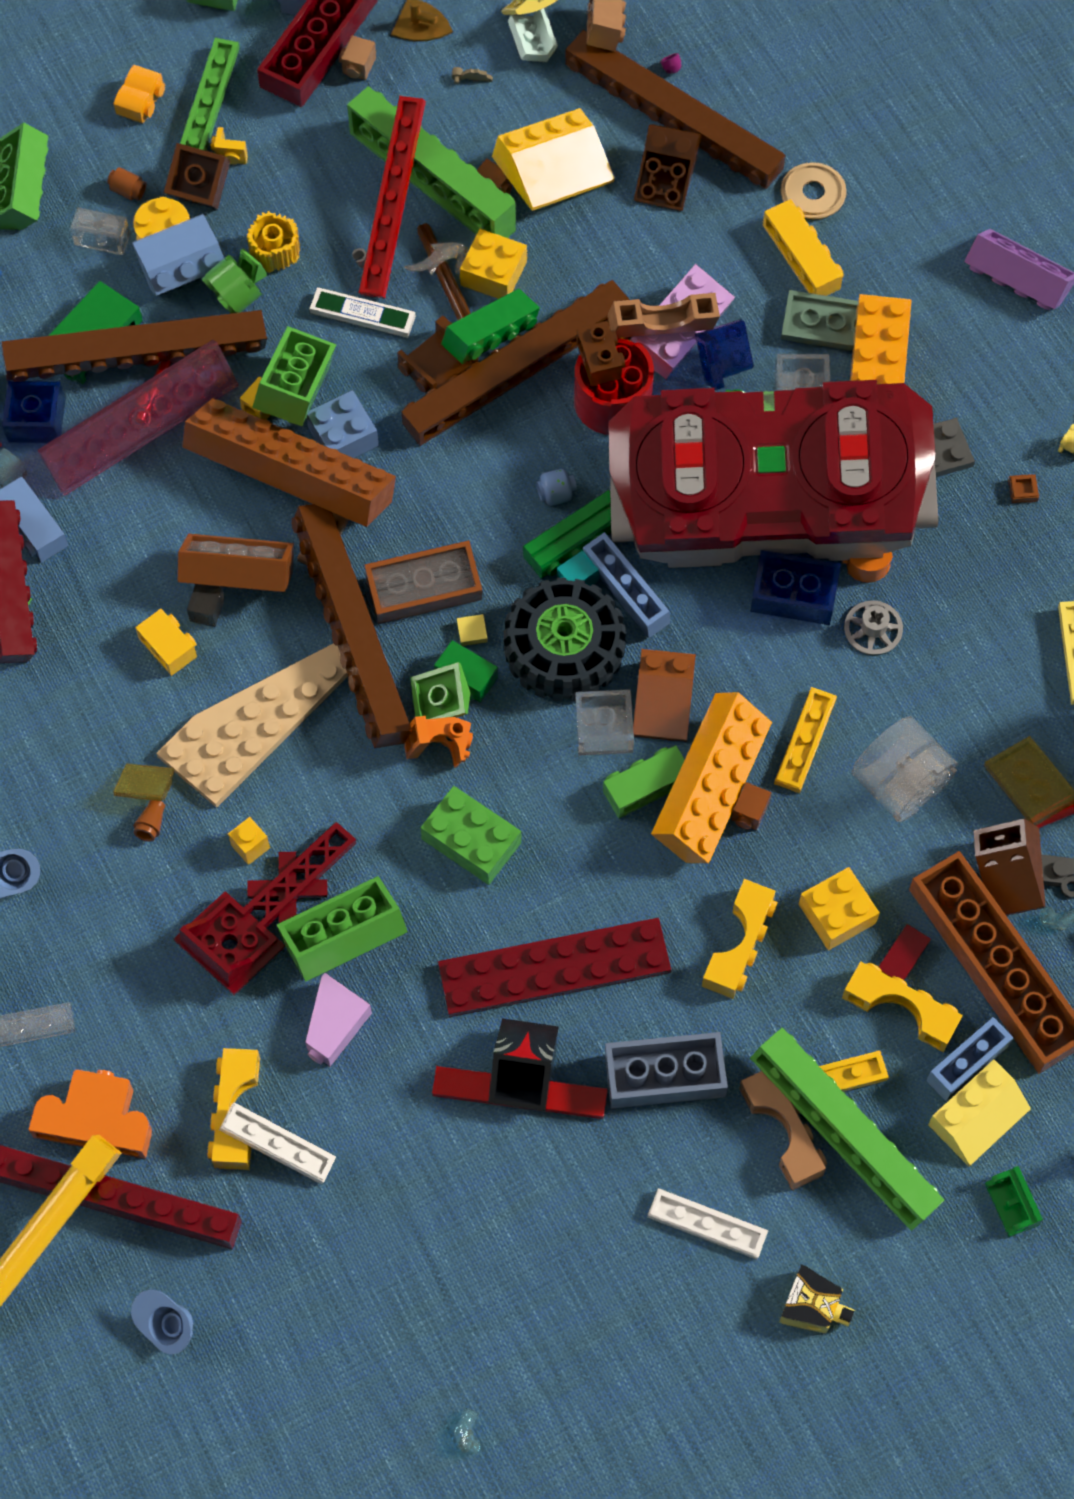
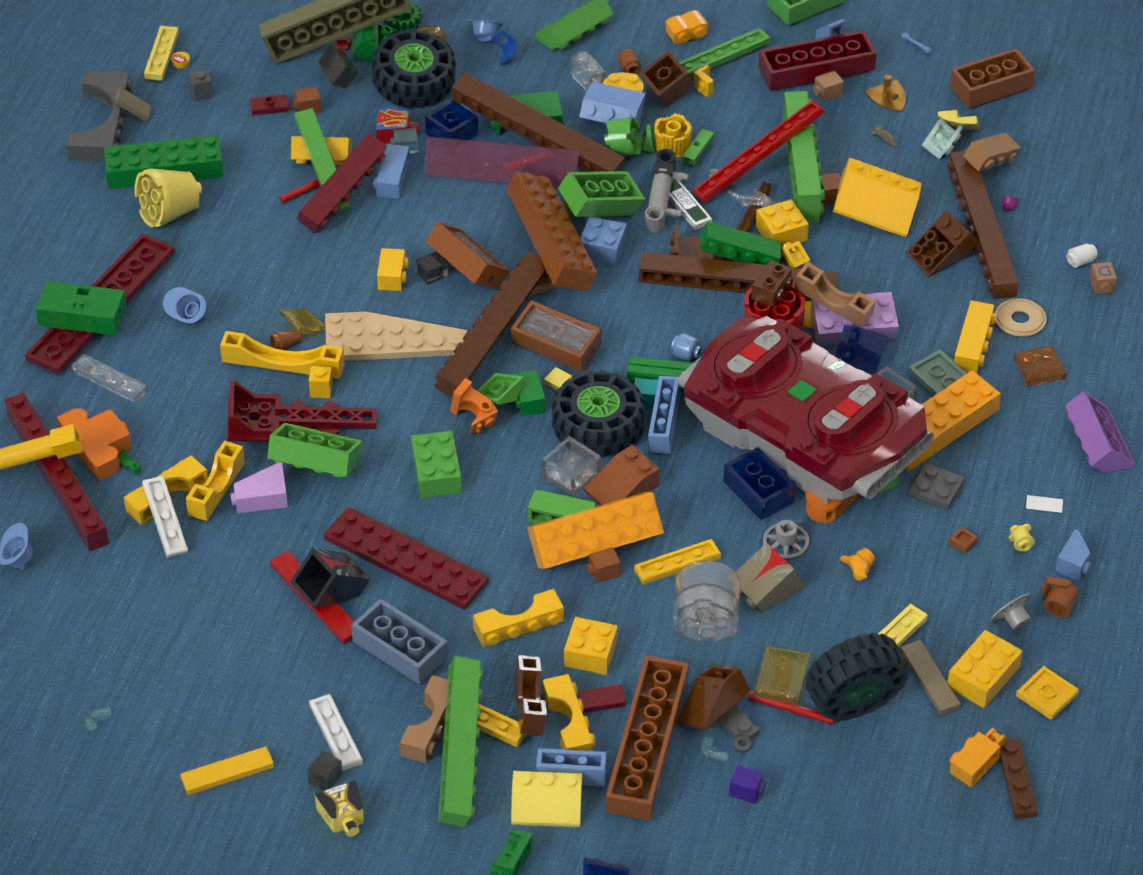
camera: 45 degrees right, 20 degrees down
(139, 867) = (243, 350): none -> yellow arch
(152, 1111) = (127, 462): none -> green piece
(279, 1053) = (205, 498): none -> yellow arch
(306, 226) = (697, 147): none -> bright green piece
(322, 303) = (663, 179): none -> light grey piece
(541, 290) = (794, 254): none -> yellow bracket
(656, 1366) = (226, 770): none -> yellow tile
(753, 1280) = (324, 771): none -> clear smoke brick
(799, 73) = (1081, 255): none -> white brick
(827, 1001) = (530, 708): none -> reddish brown arch
(845, 85) = (1103, 278): none -> medium nougat brick
(887, 232) = (1040, 365): none -> clear orange plate
(914, 690) = (768, 579): none -> dark tan slope
(970, 597) = (859, 563): none -> light orange animal
(1046, 385) = (1044, 503): none -> white sticker

